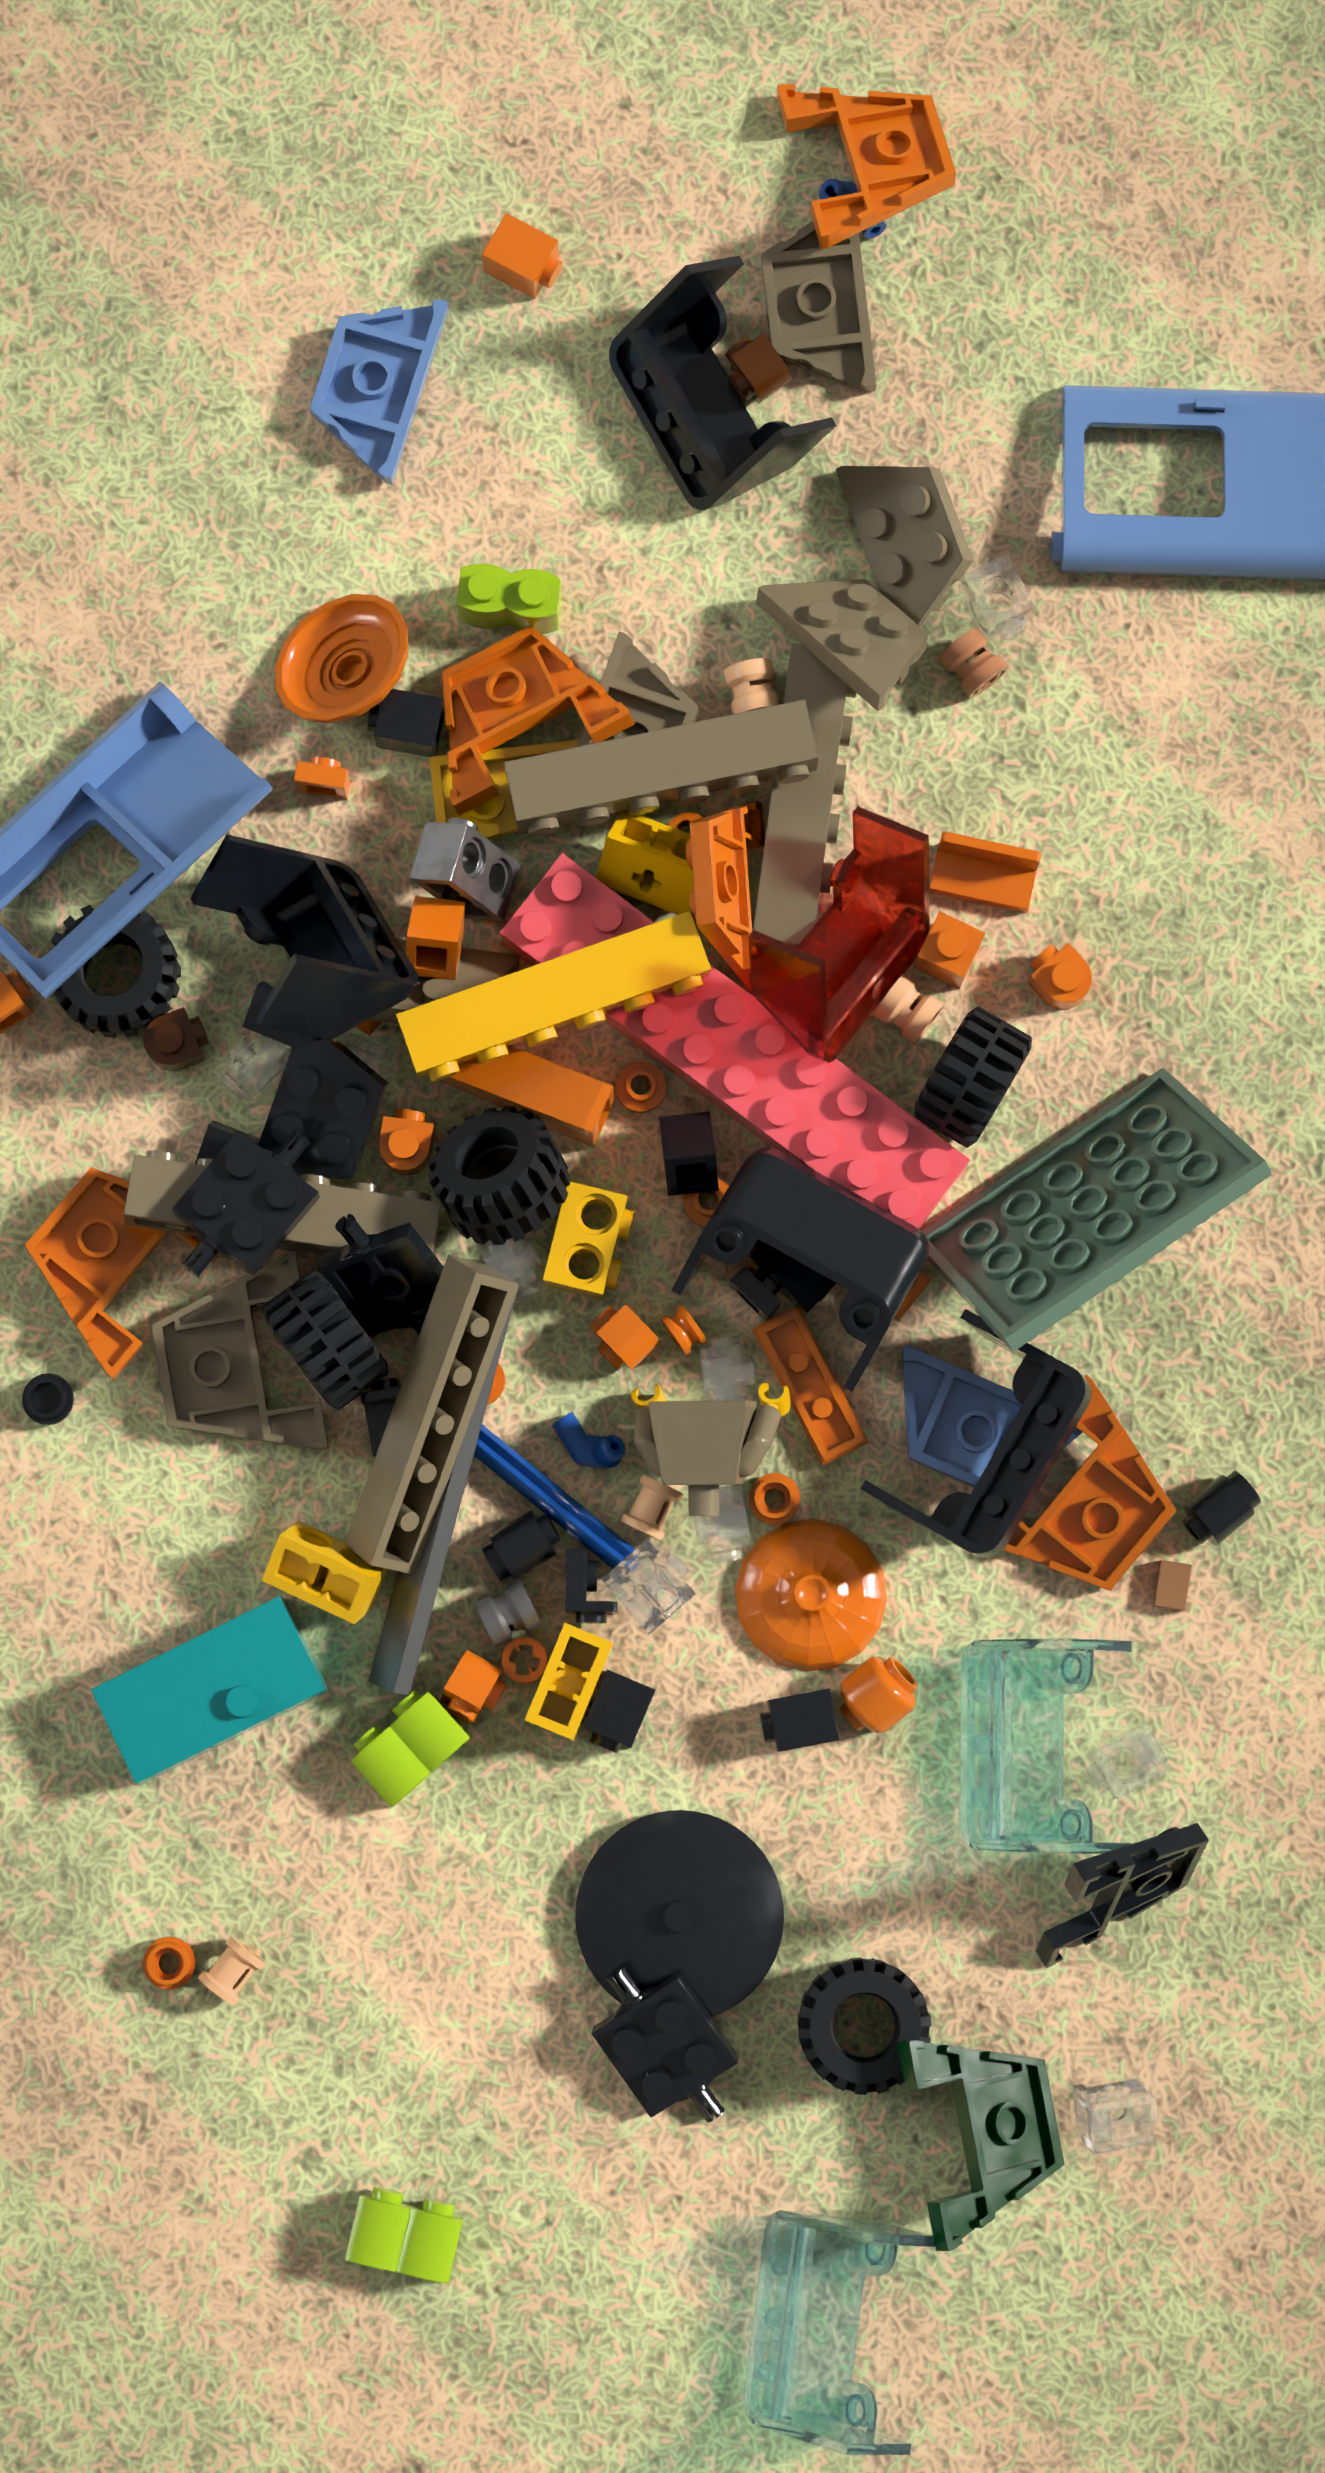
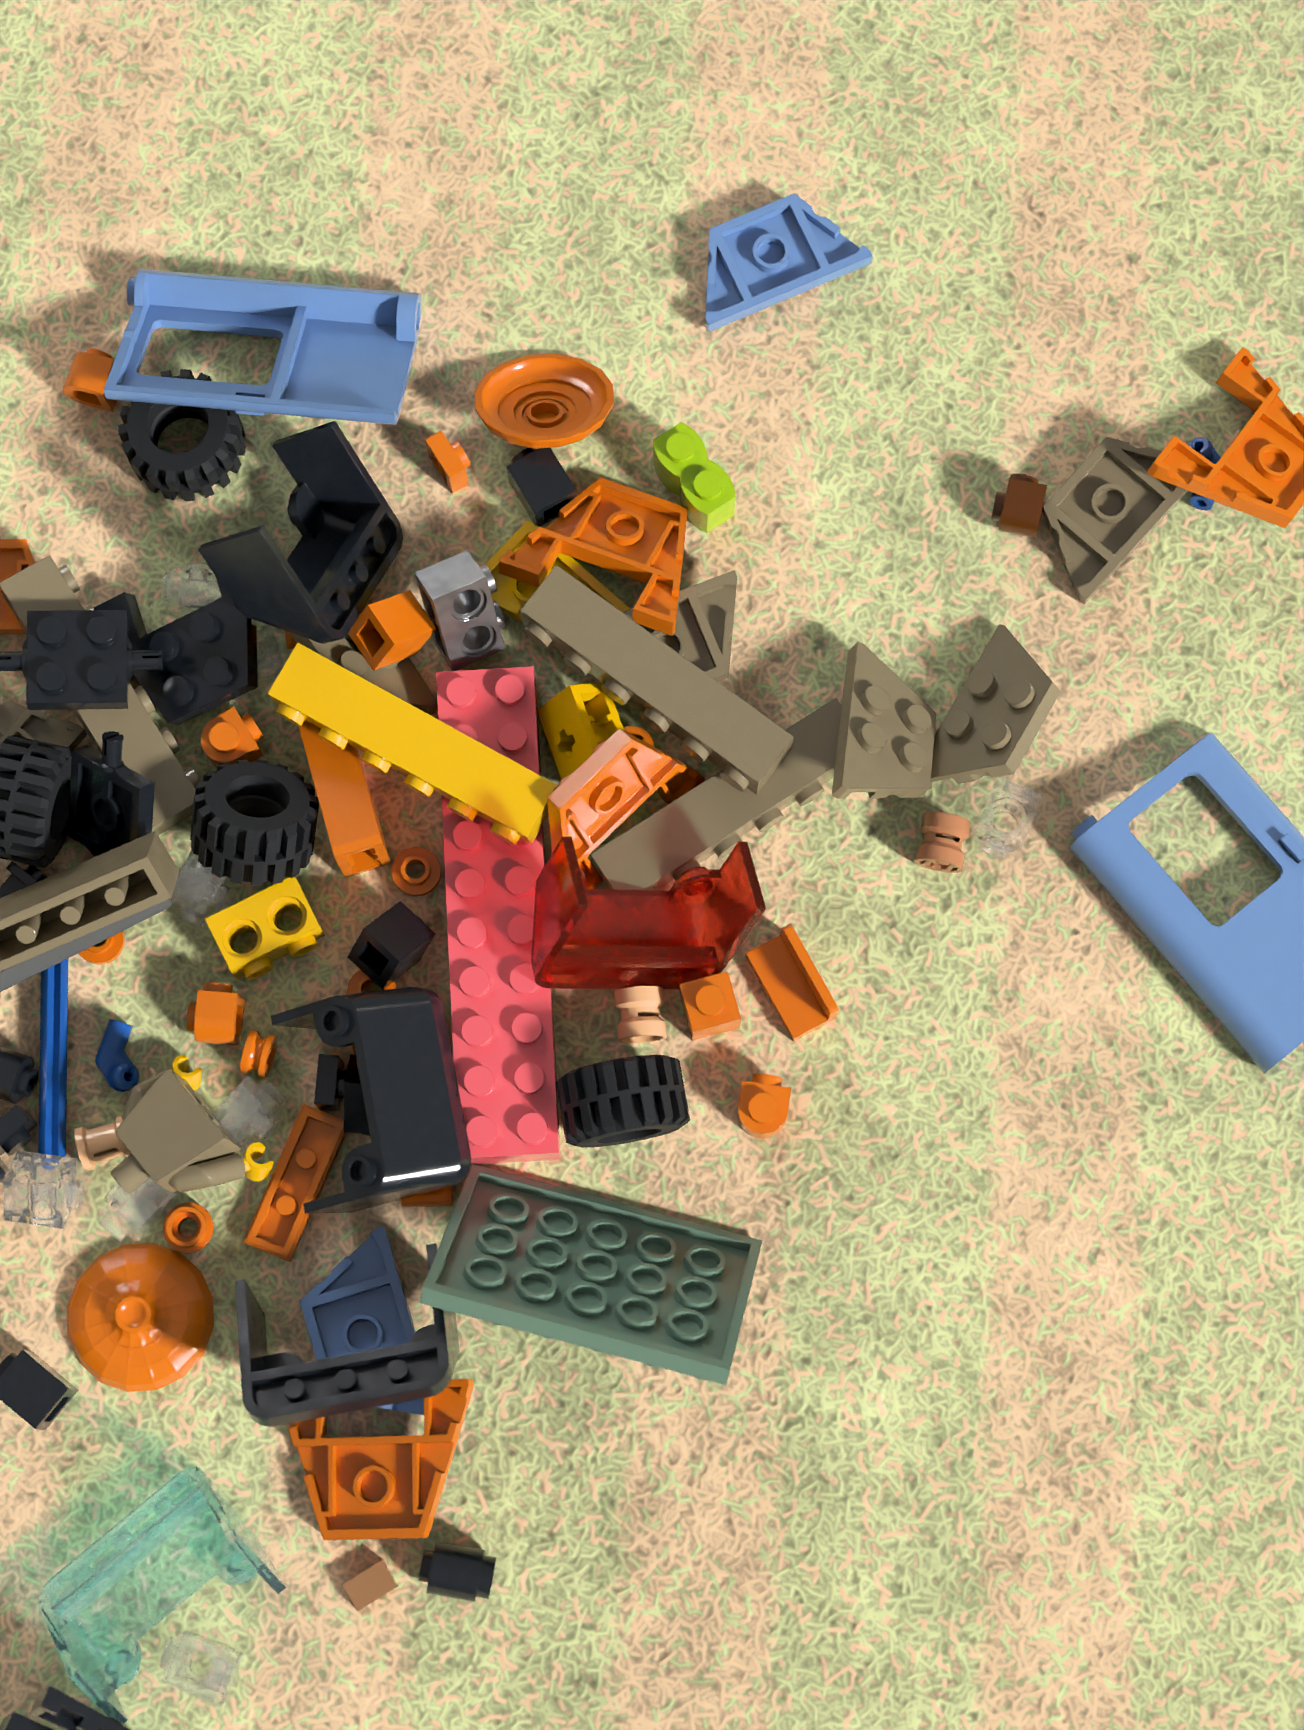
camera: 50 degrees right, 5 degrees down
(175, 1040) = (170, 520): reddish brown plate -> none
(522, 256) = (952, 278): orange brick -> none
(688, 400) = (955, 479): black windscreen -> none
(751, 685) = (782, 698): light nougat wheel -> none
(878, 1694) = (99, 1430): orange head -> none

